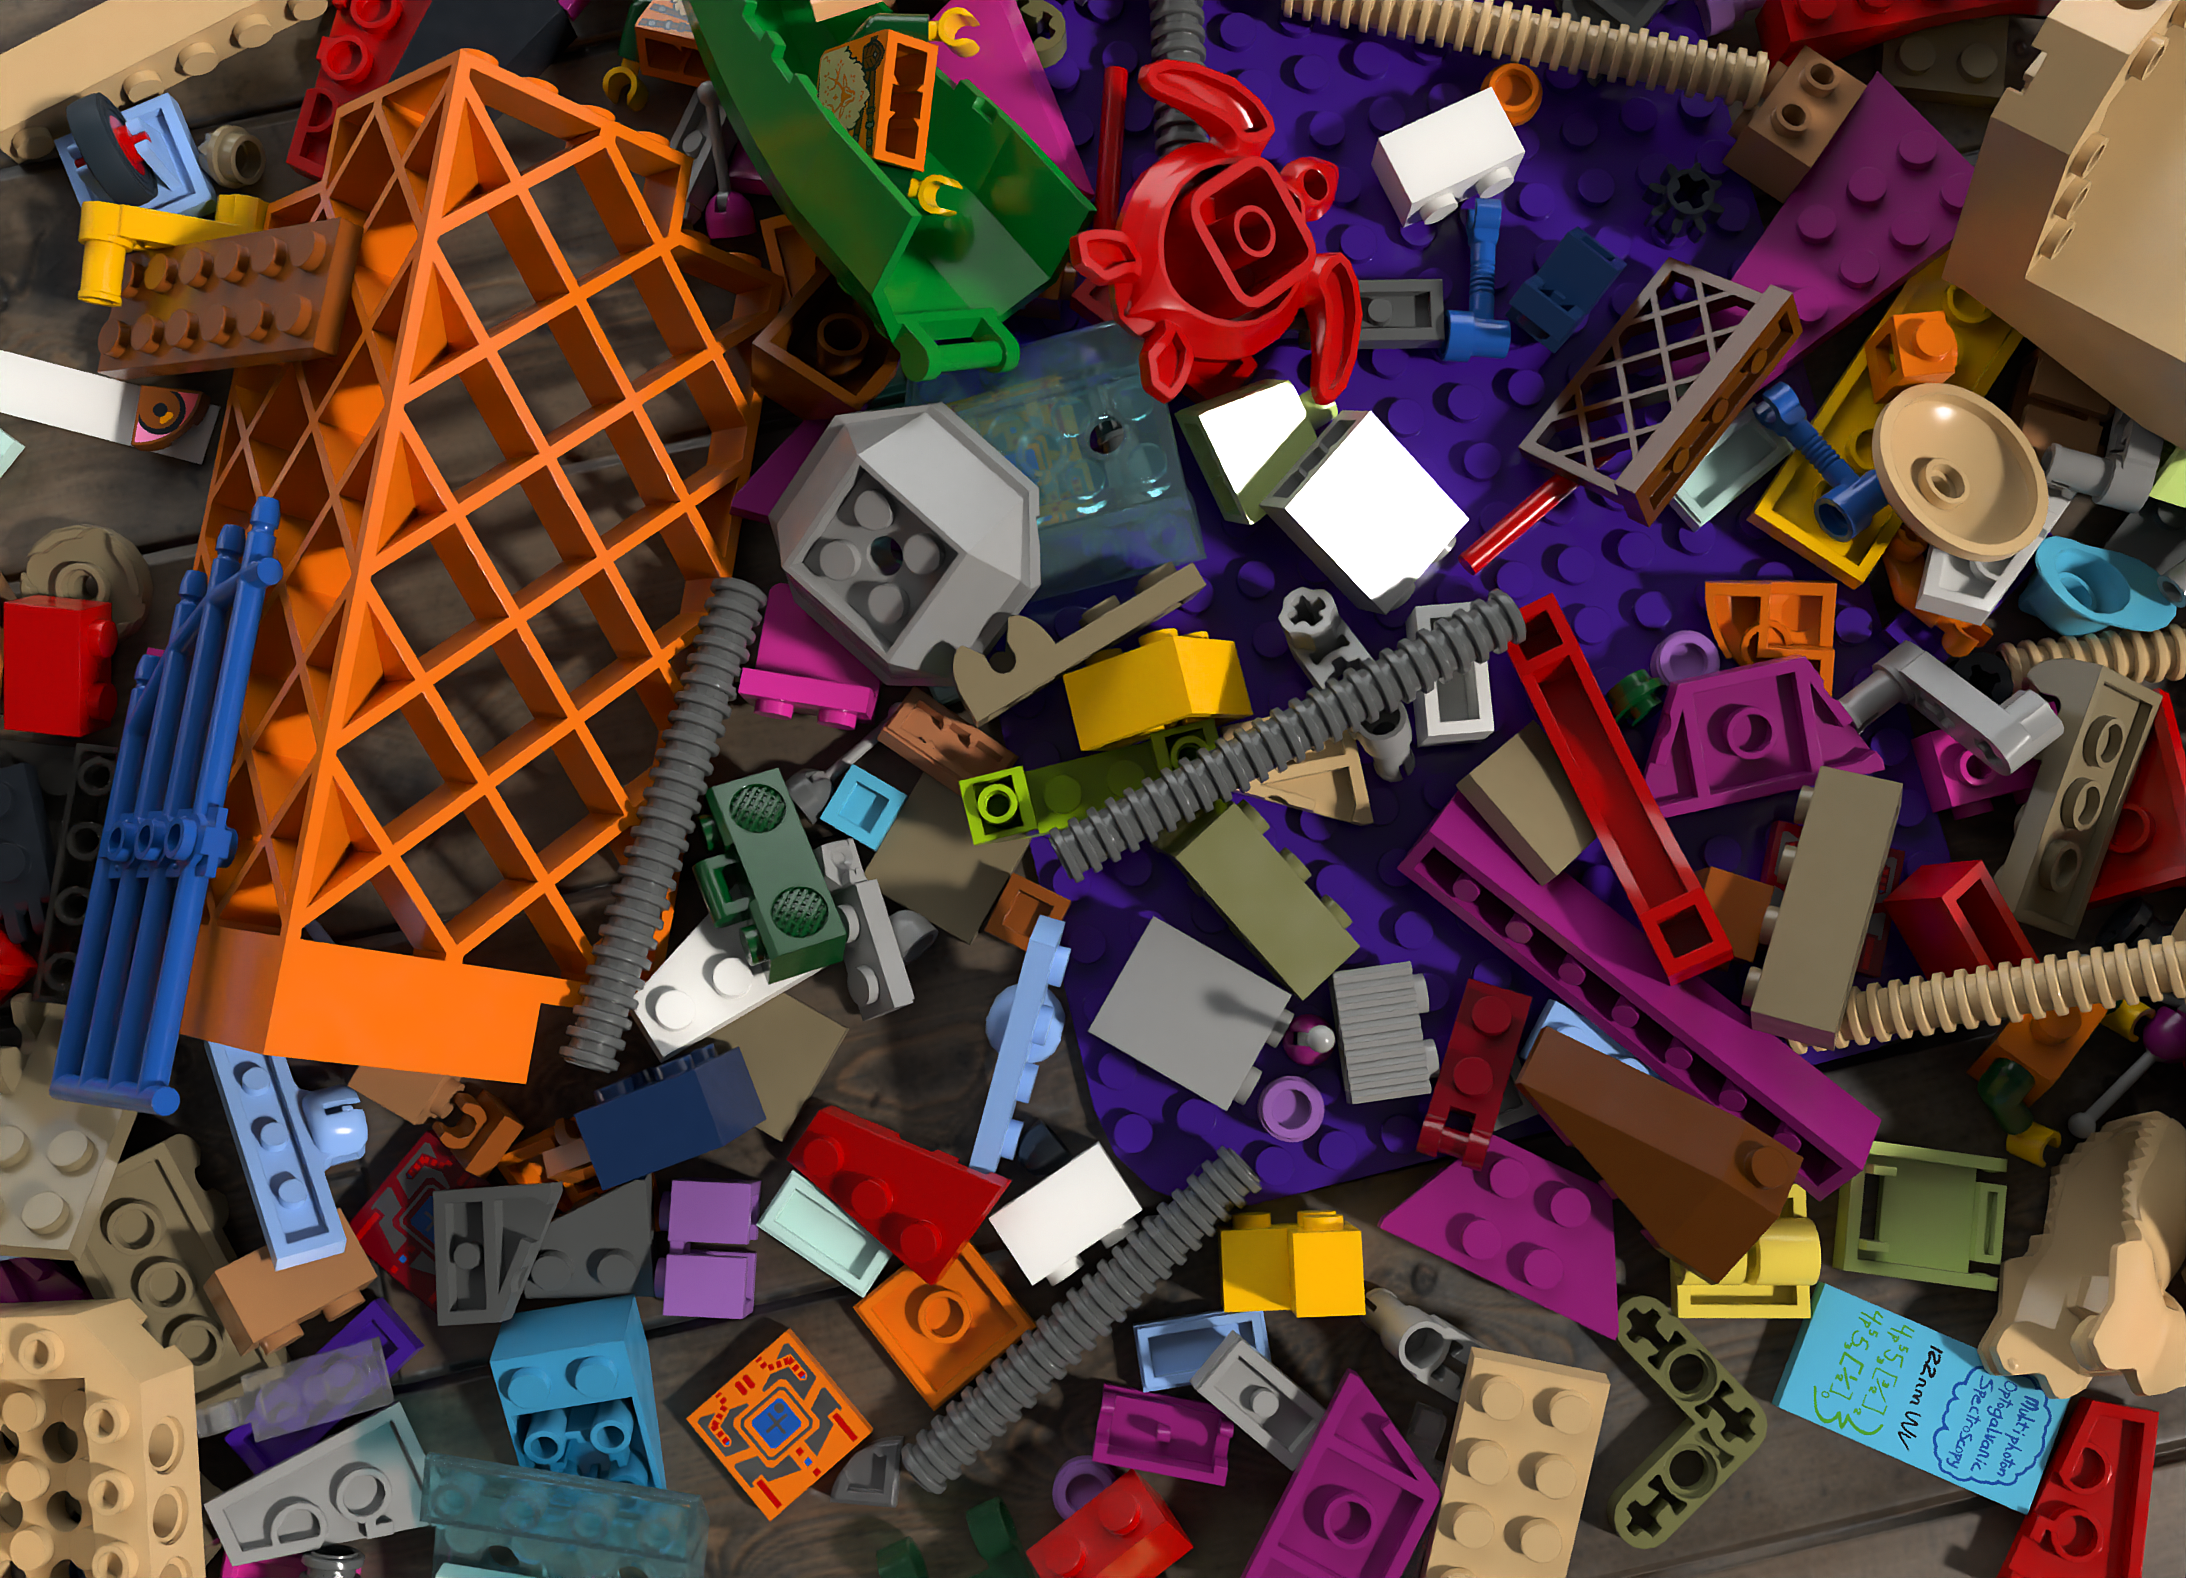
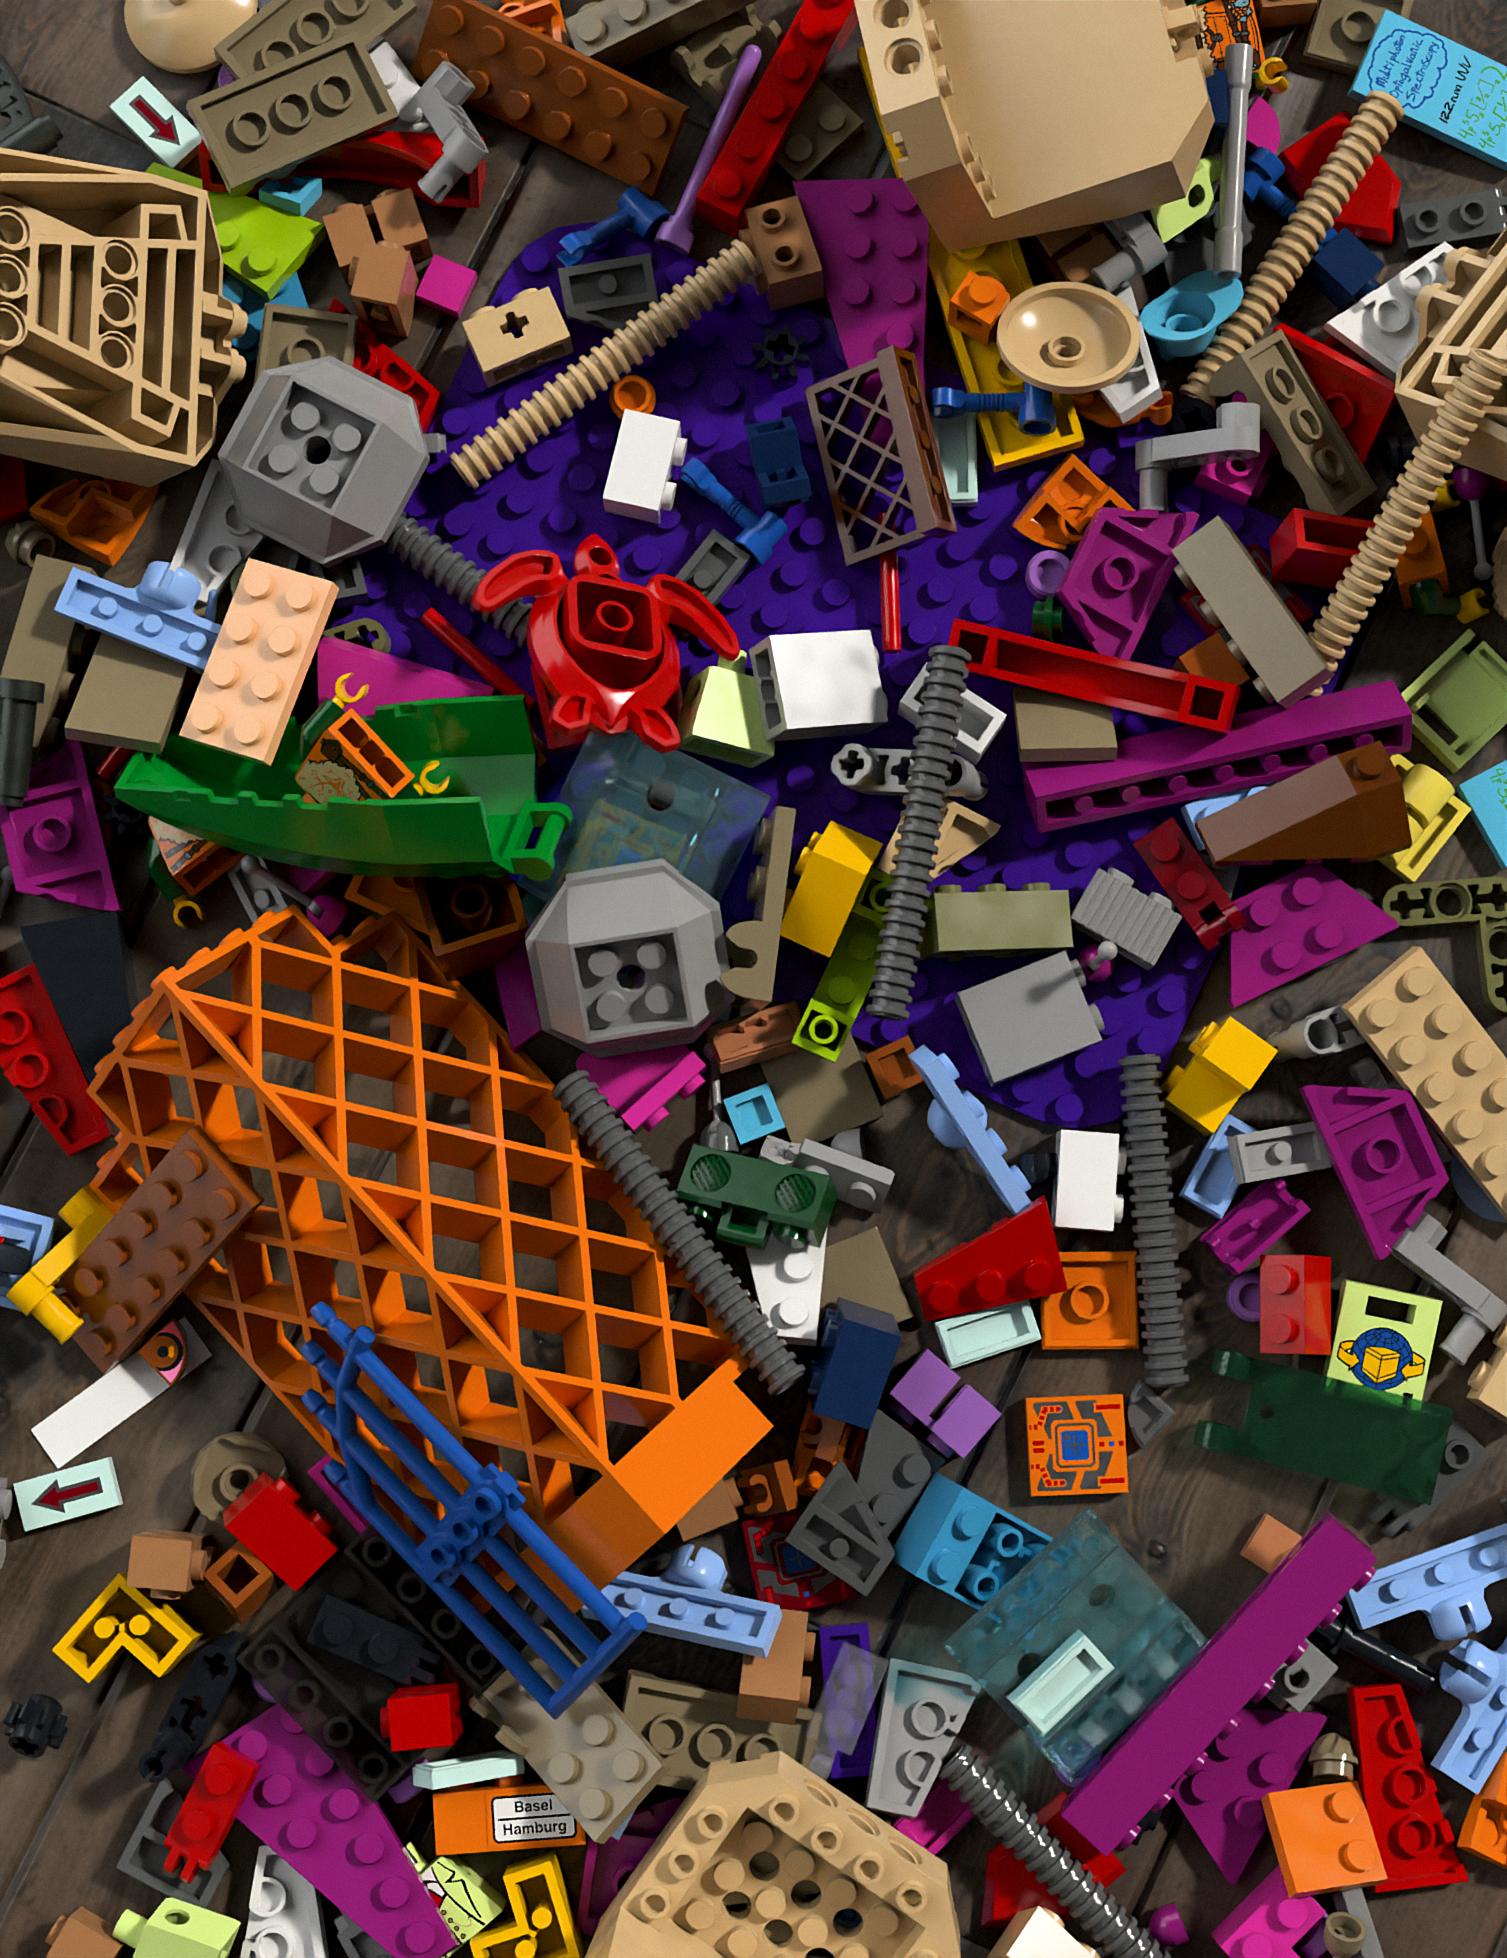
camera: 55 degrees left, 0 degrees up
(232, 157) = (34, 1187): dark tan plate -> none
(1290, 1109) = (1126, 1005): medium lavender tile -> none

